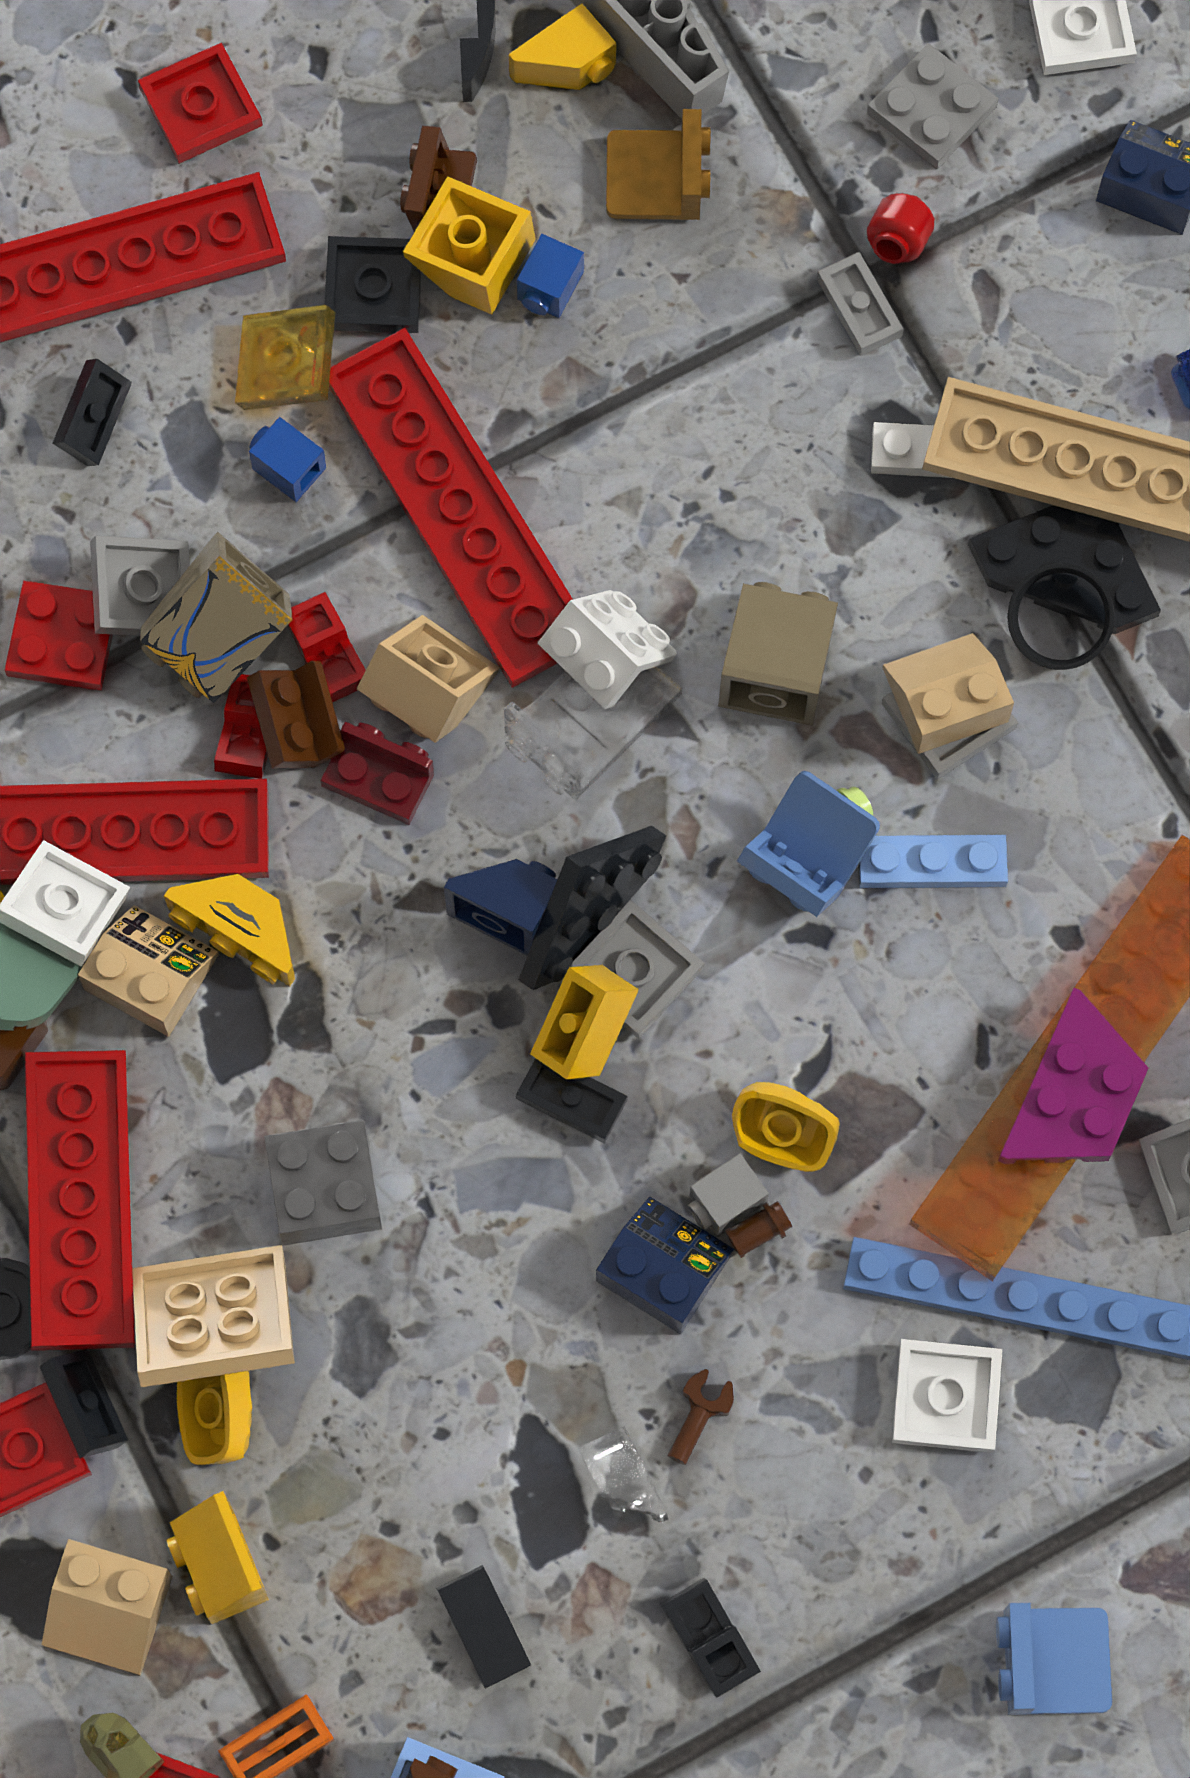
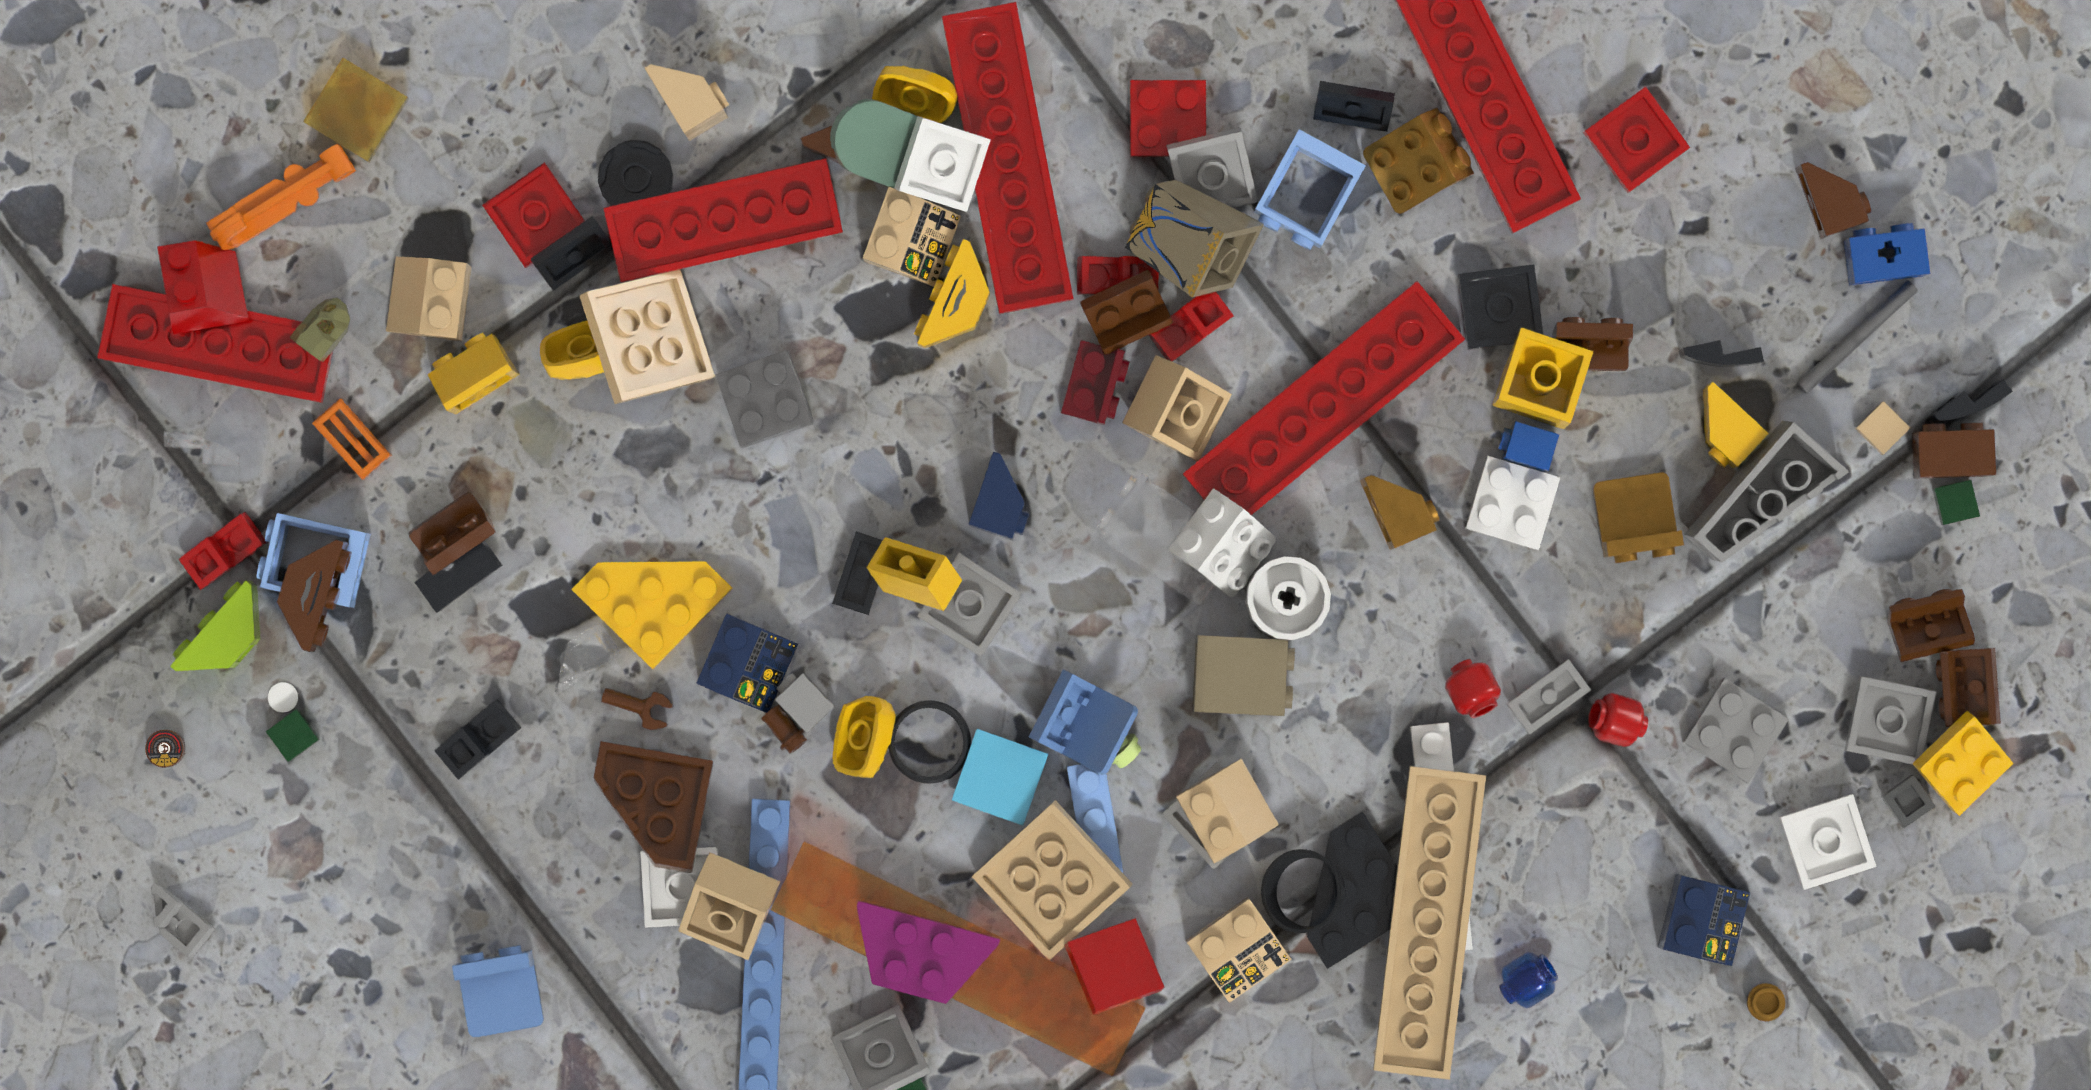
camera: 85 degrees right, 15 degrees up
(151, 448) = (1325, 155): none -> light blue window
(176, 352) = (1418, 160): none -> pearl gold bracket
(285, 357) = (1422, 249): clear yellow plate -> none
(286, 458) = (1340, 265): blue brick -> none
(427, 1622) = (452, 532): none -> reddish brown bracket
(563, 1376) = (652, 602): none -> yellow plate
(586, 900) = (1010, 562): black plate -> none
(604, 431) = (1399, 511): none -> pearl gold slope
(615, 311) = (1512, 503): none -> white plate
(690, 579) = (1309, 592): none -> white wheel
(819, 1093) = (965, 733): none -> black tyre
(827, 1405) = (657, 799): none -> reddish brown plate
(836, 385) = (1473, 688): none -> red head
(861, 966) = (1000, 777): none -> medium azure tile
(983, 1328) = (728, 906): none -> tan slope
(1004, 918) = (1052, 880): none -> tan plate
(1119, 711) = (1238, 949): none -> tan slope
(1125, 858) = (1114, 966): none -> red tile

